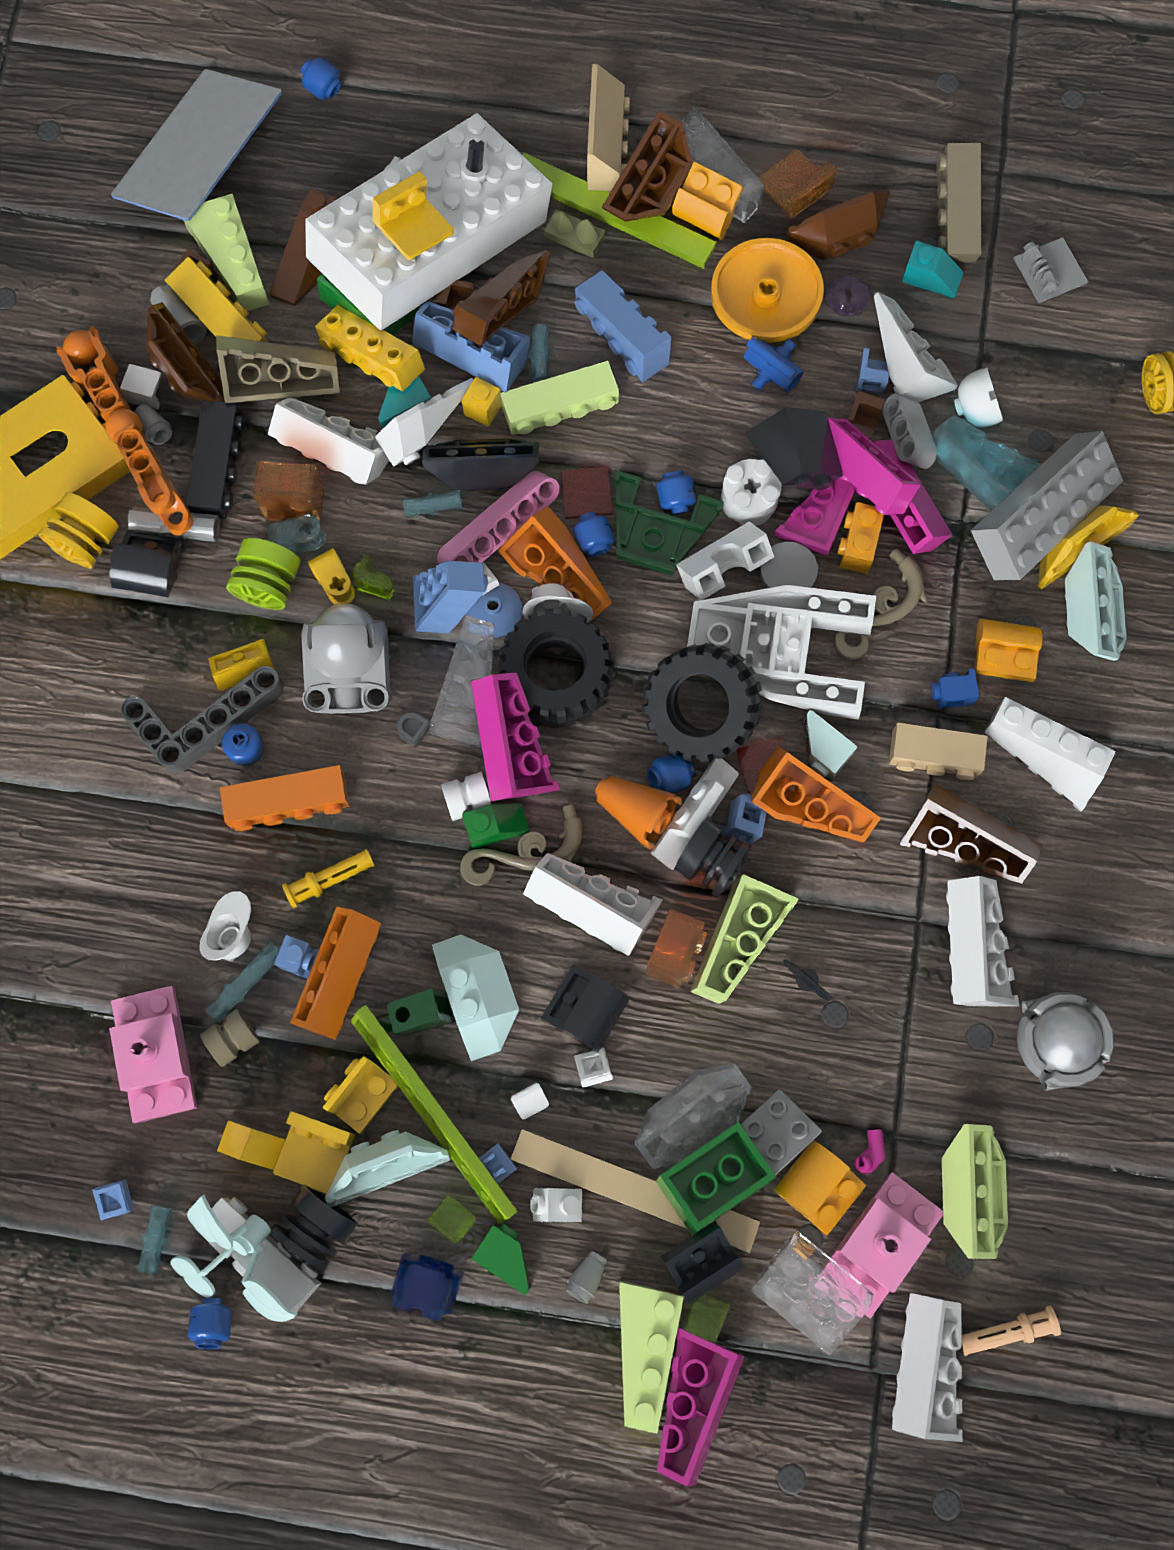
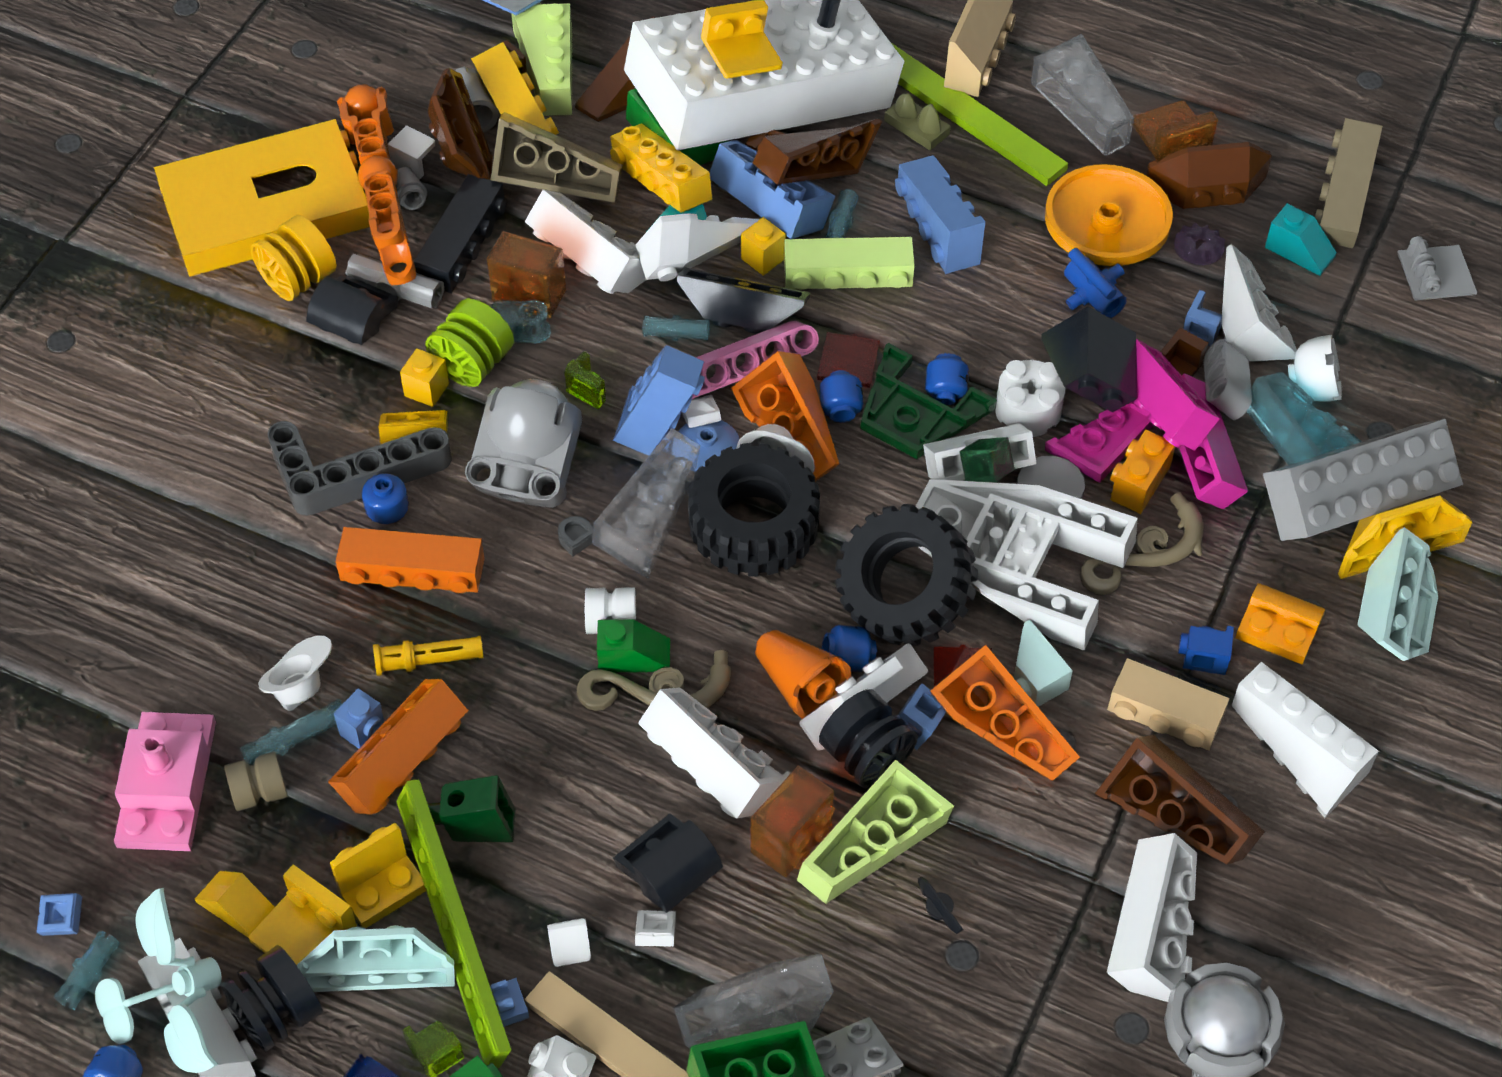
camera: 15 degrees right, 20 degrees down
(234, 615) = (424, 377): none -> yellow brick
(332, 575) = (542, 362): yellow piece -> none
(477, 993) = (549, 818): light aqua wedge -> none
(509, 739) = (676, 559): dark pink wedge -> none
(652, 173) = (1015, 78): reddish brown wedge -> none
(707, 200) = (1068, 119): light orange brick -> none
(736, 570) = (987, 460): none -> clear green brick

